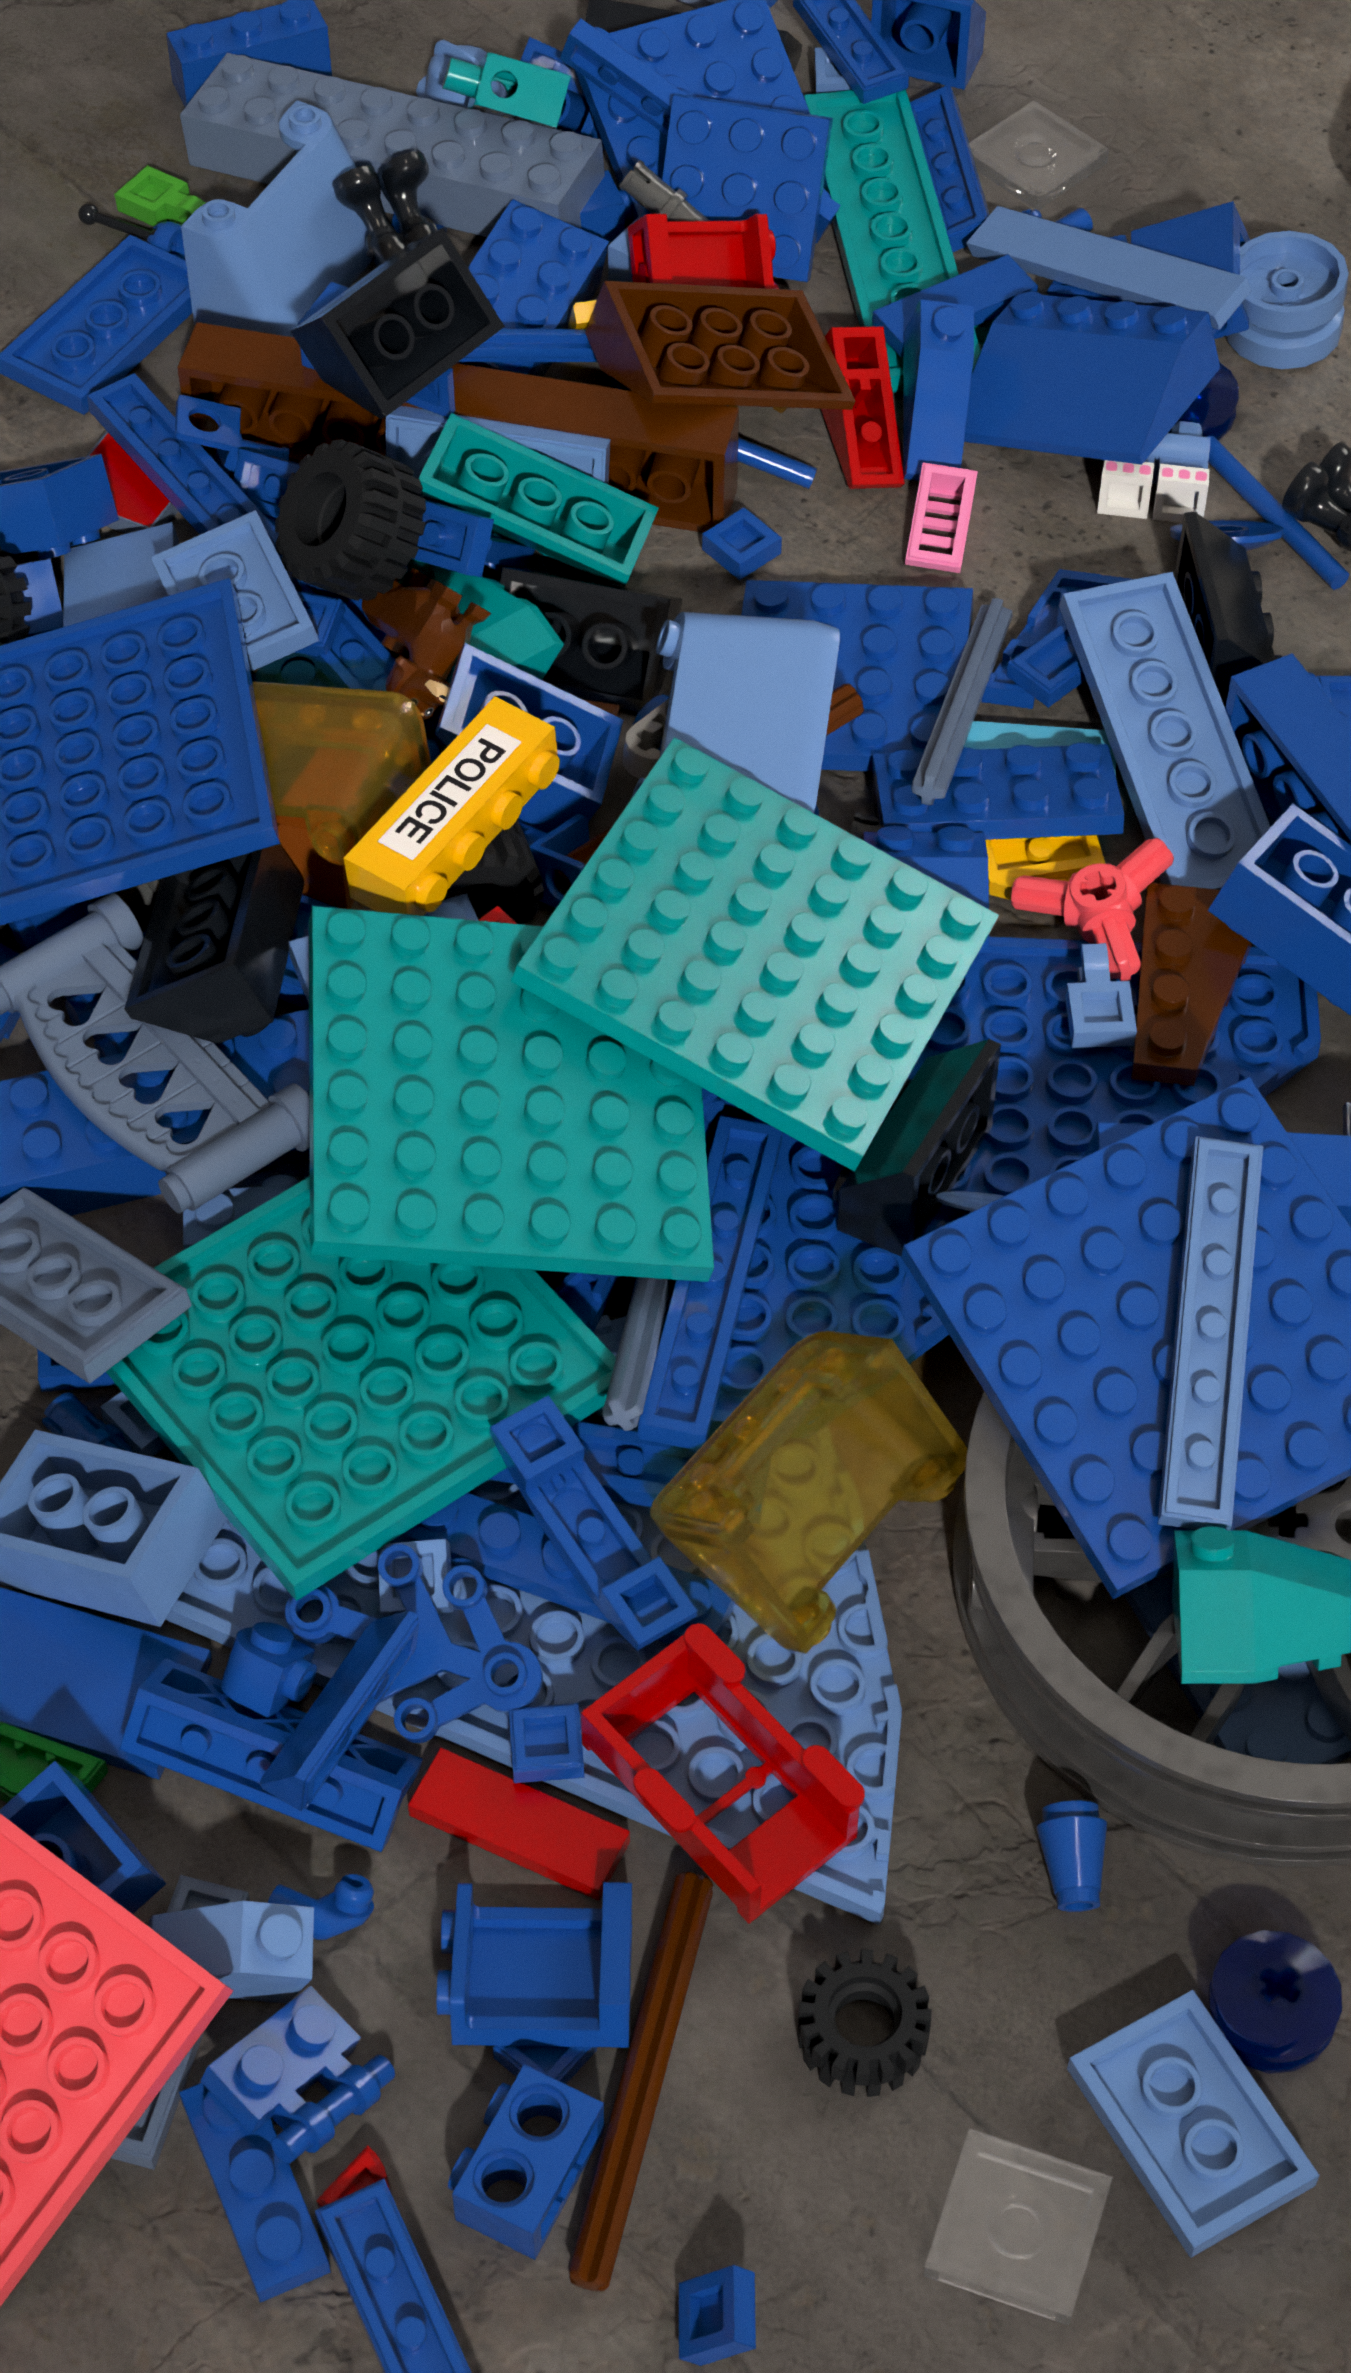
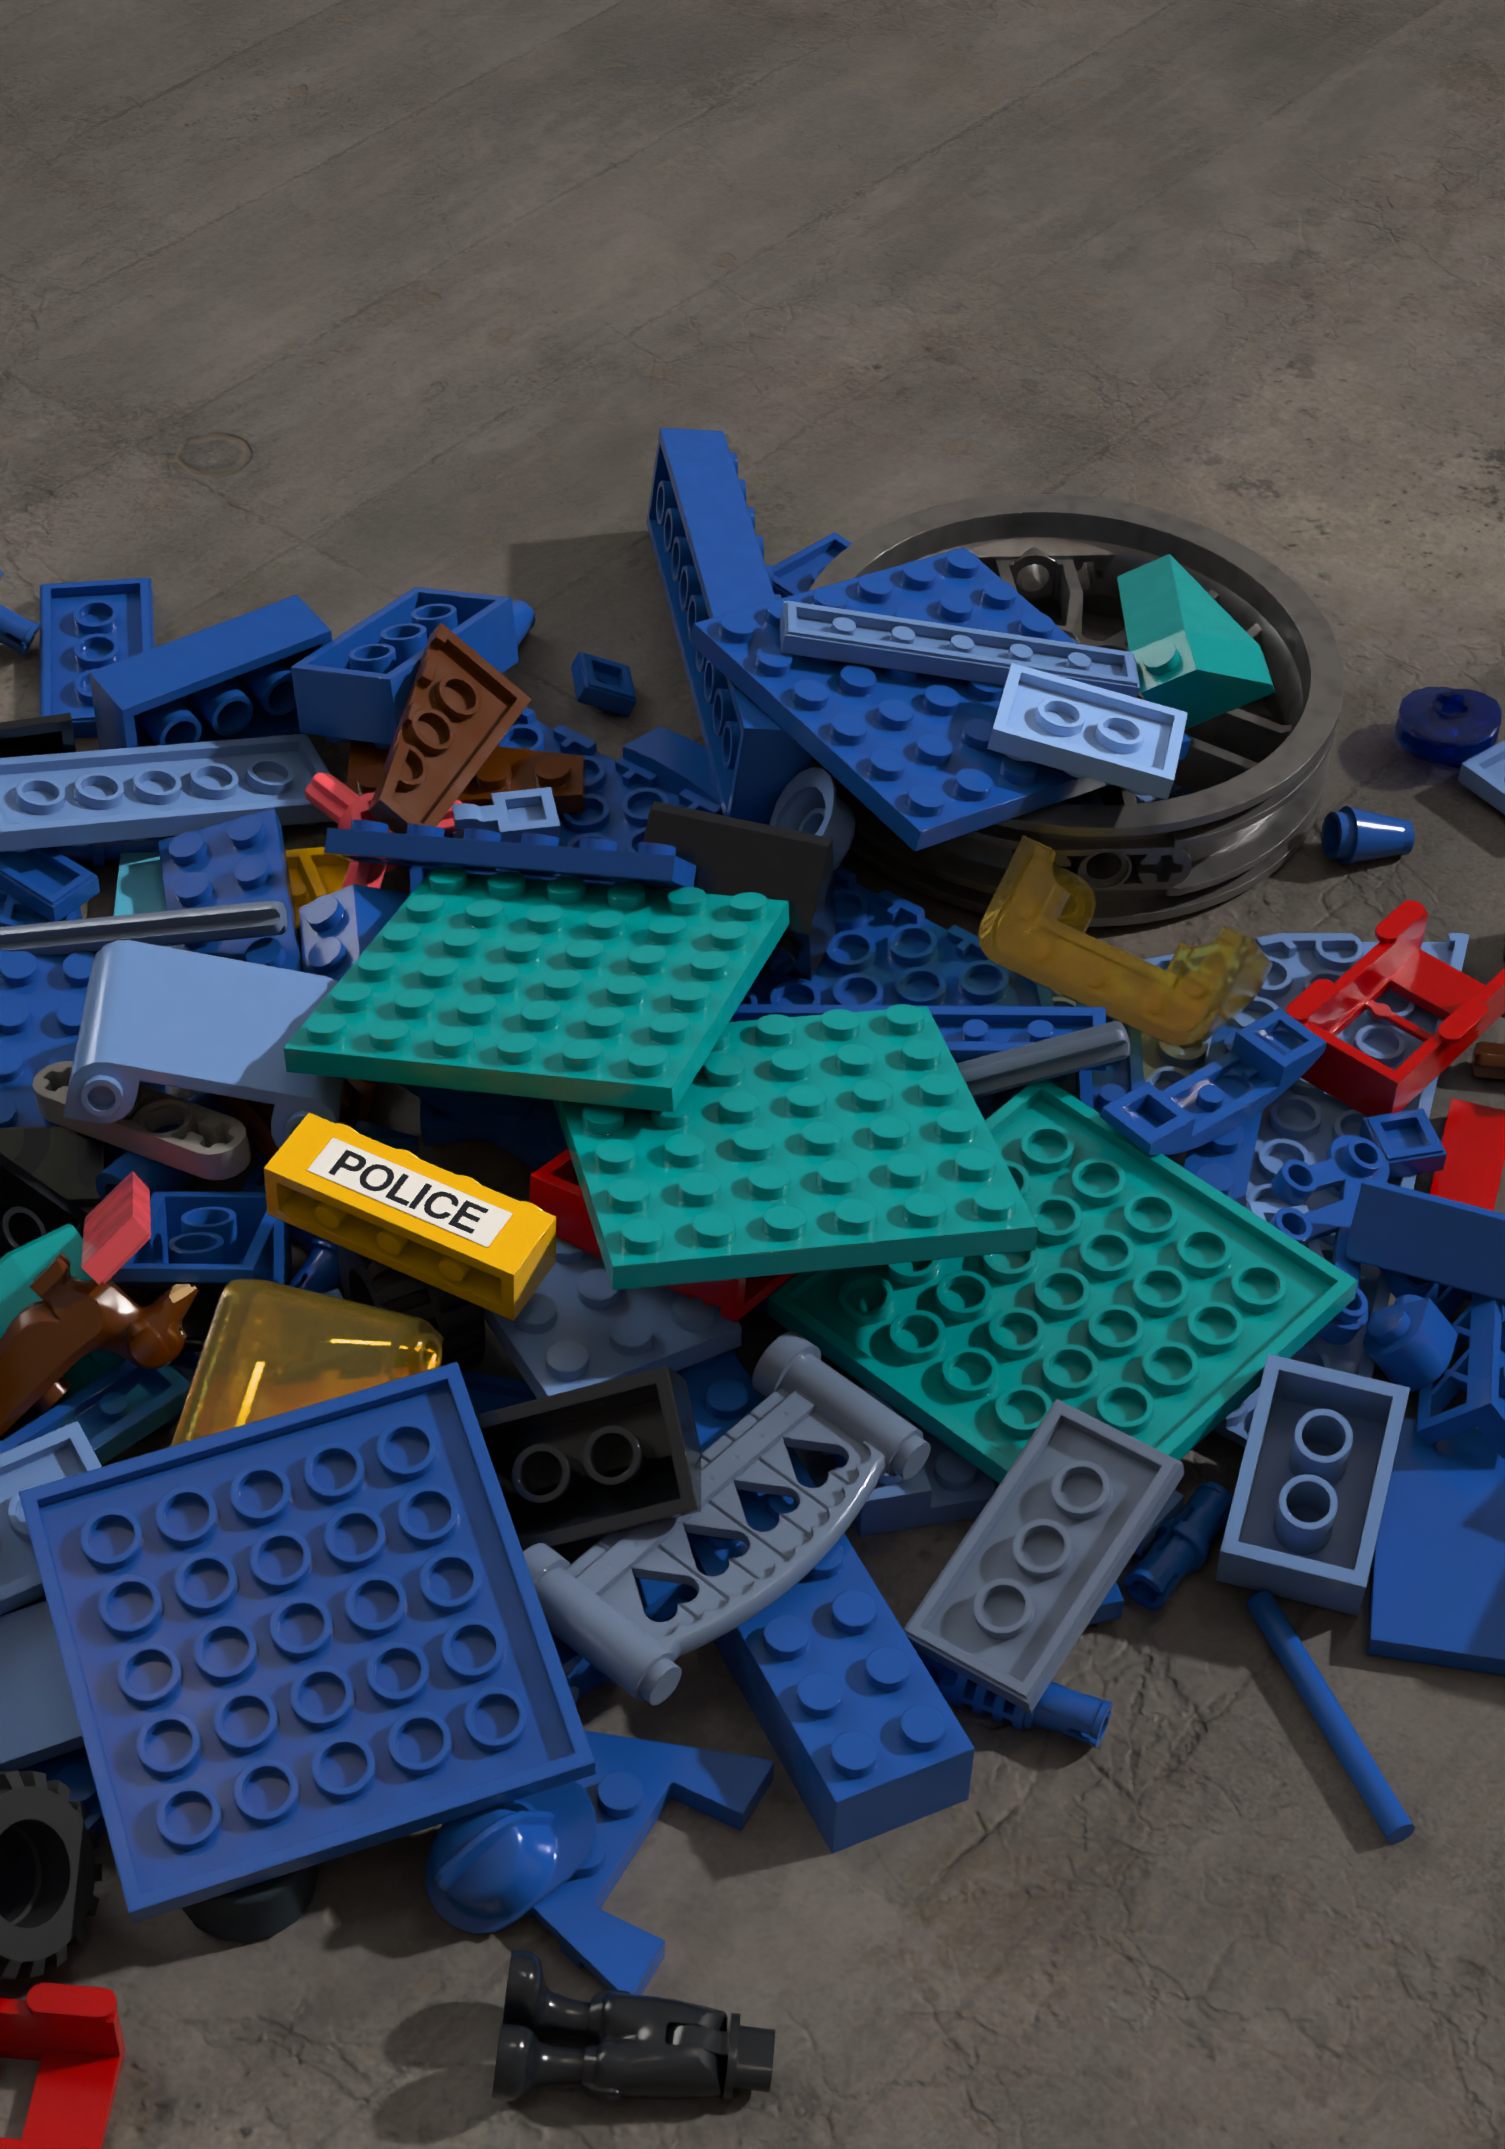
camera: 100 degrees left, 10 degrees down
(534, 662) = (116, 1228): none -> coral tile
(971, 957) = (534, 857): none -> blue plate
(1061, 1431) = (1088, 731): none -> light blue plate
(1200, 931) = (445, 733): none -> reddish brown wing

